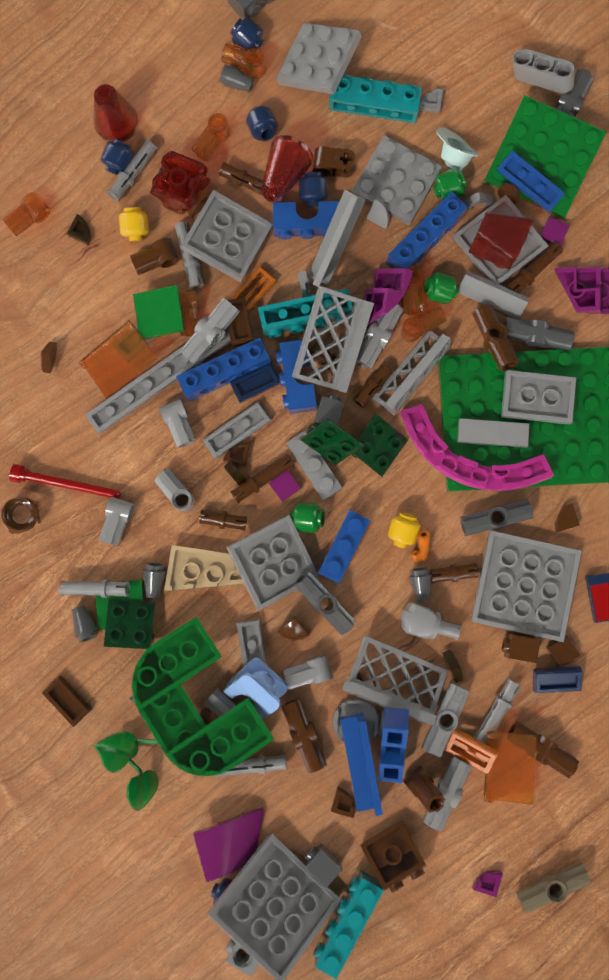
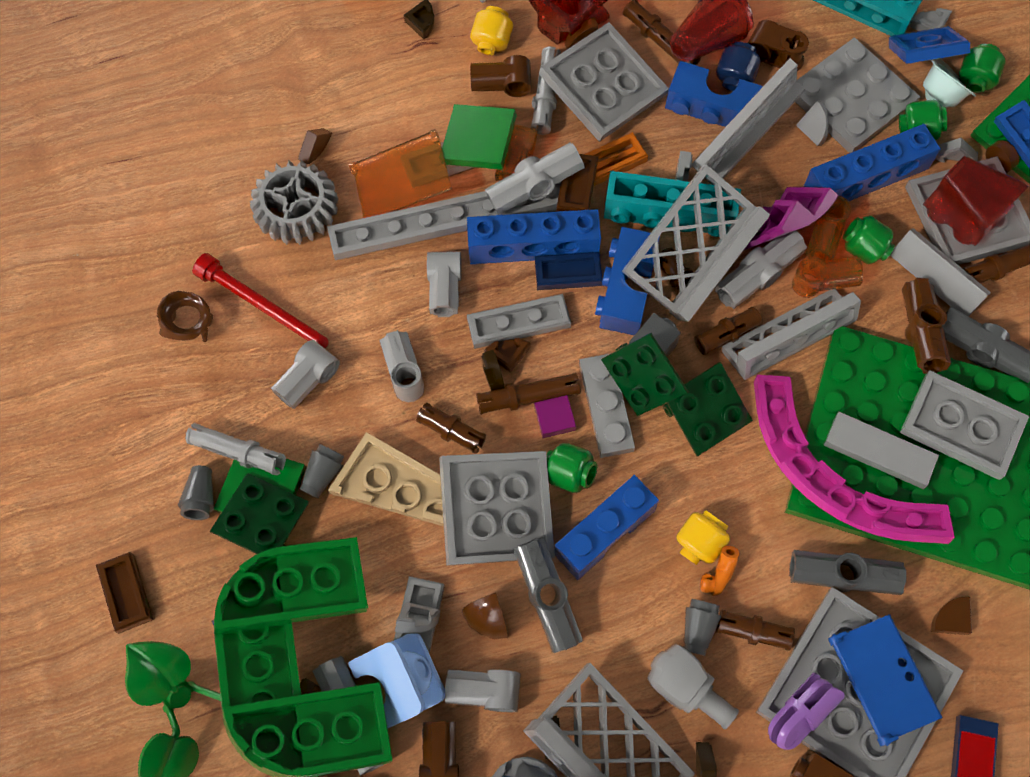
camera: 25 degrees right, 15 degrees down
(49, 387) = (301, 210): none -> light grey gear
(252, 649) = (416, 618): none -> light grey tile
(436, 126) = (928, 44): none -> blue tile
(476, 129) = (982, 68): none -> green head
(498, 613) = (804, 712): none -> medium lavender arm
(533, 572) = (884, 681): none -> blue door

